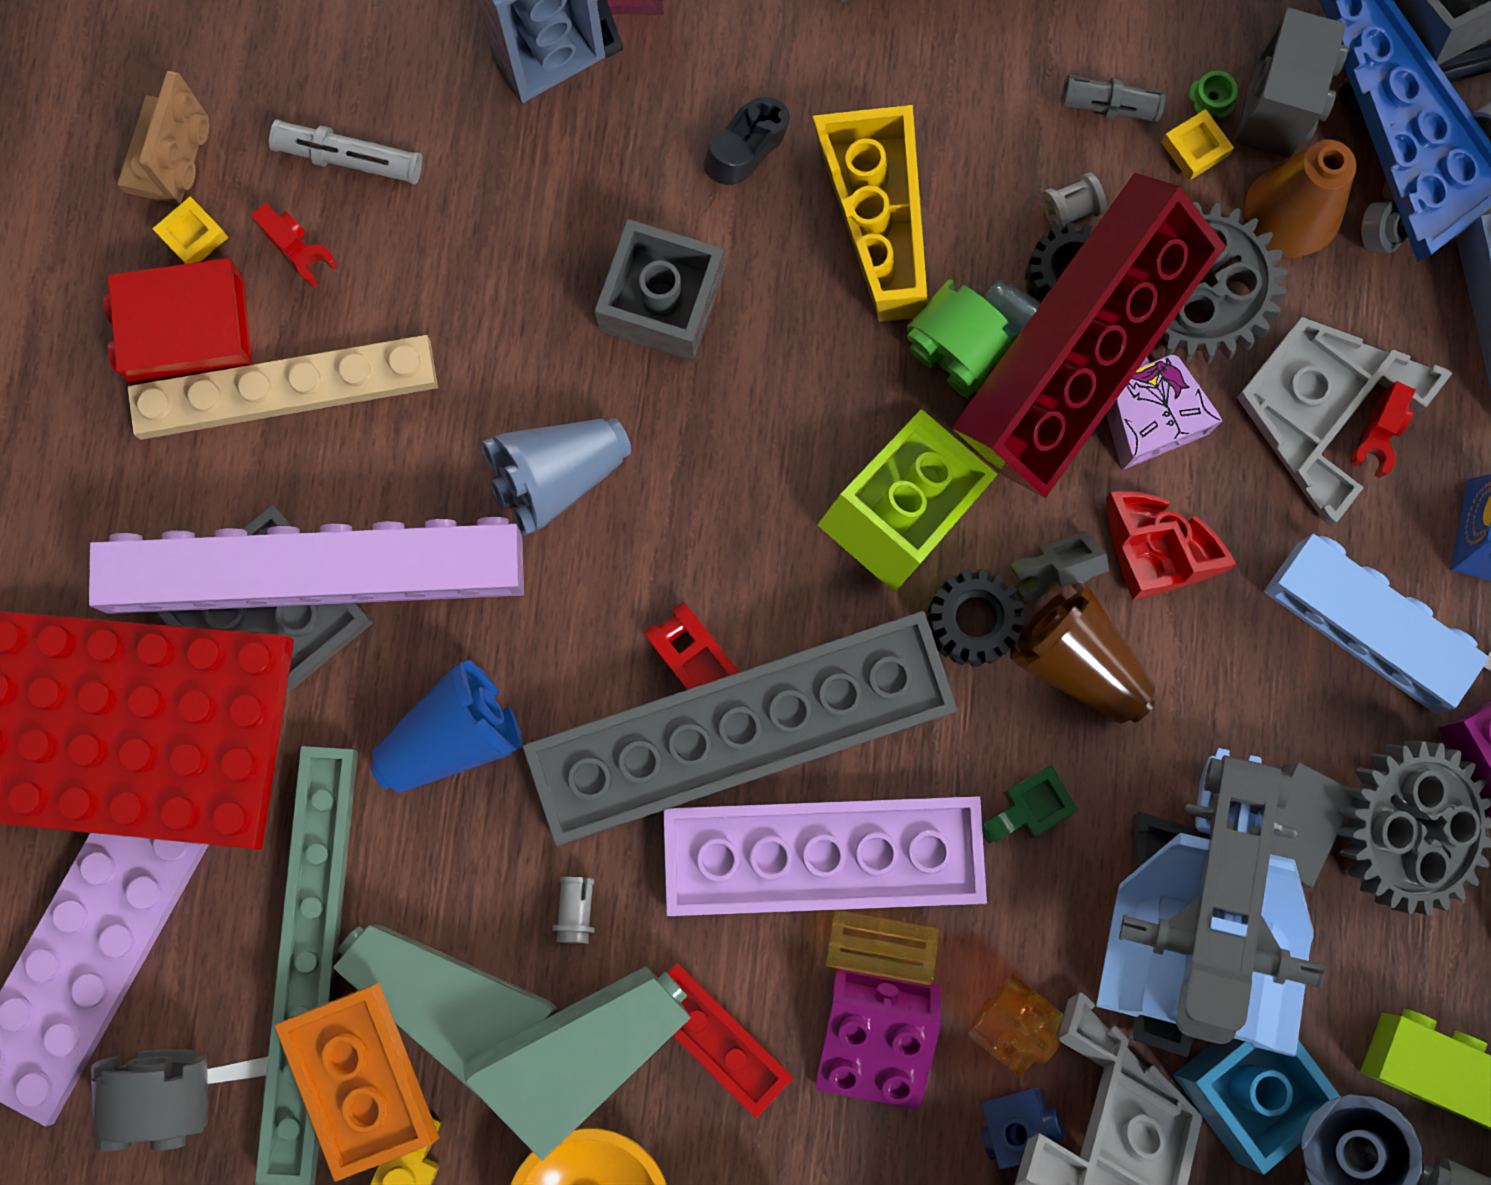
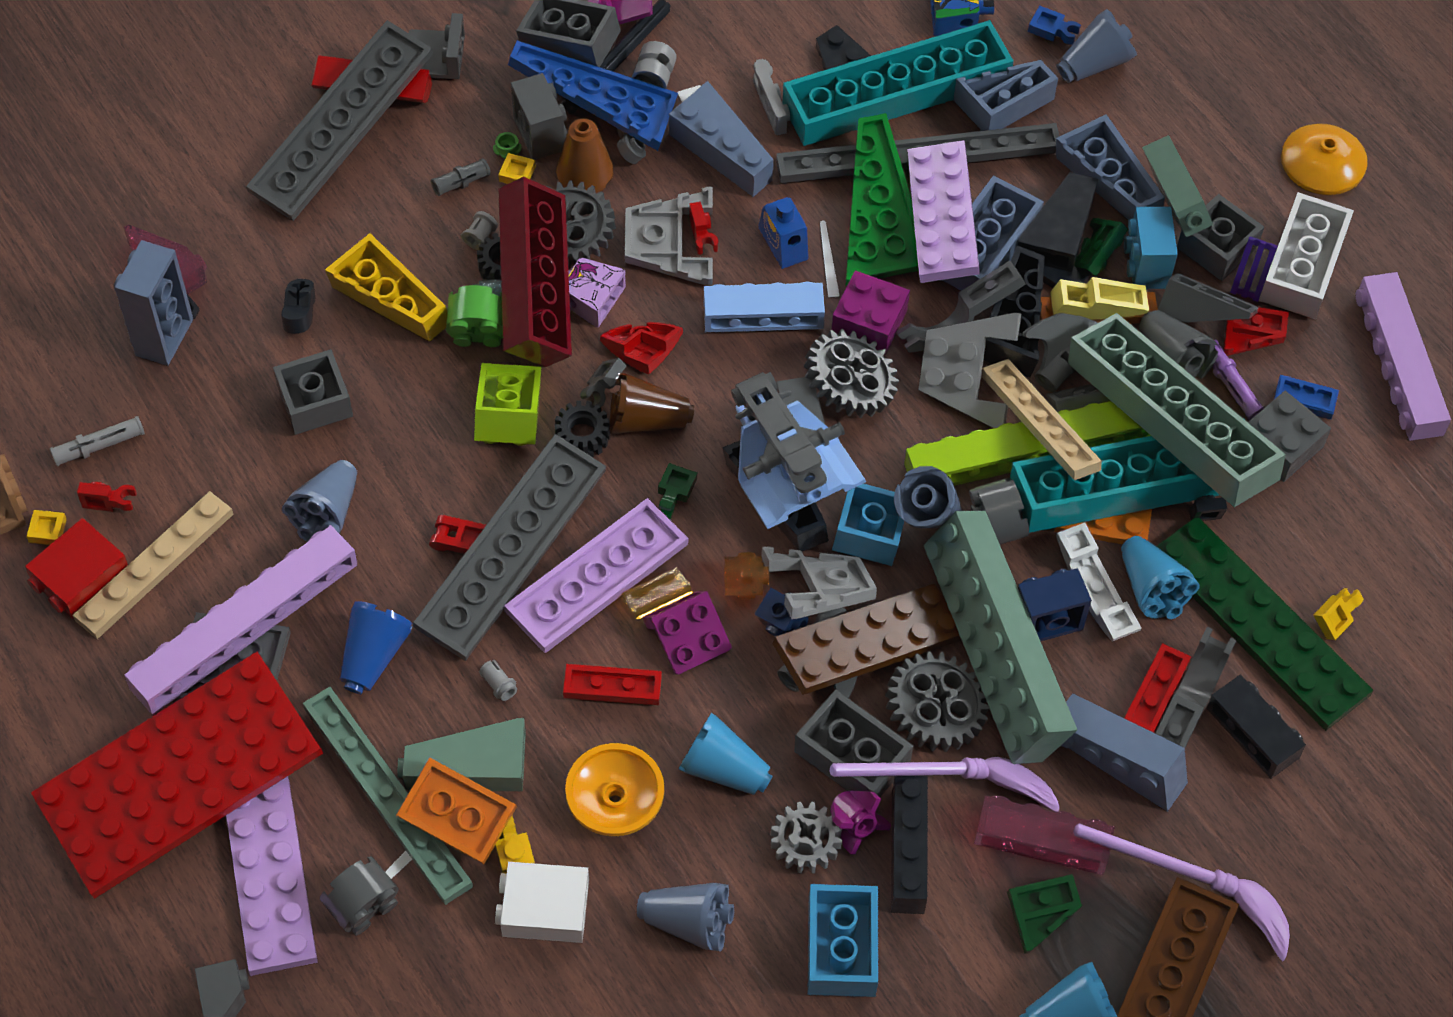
camera: 40 degrees left, 20 degrees down
(575, 1059) = (552, 729): sand green slope -> none

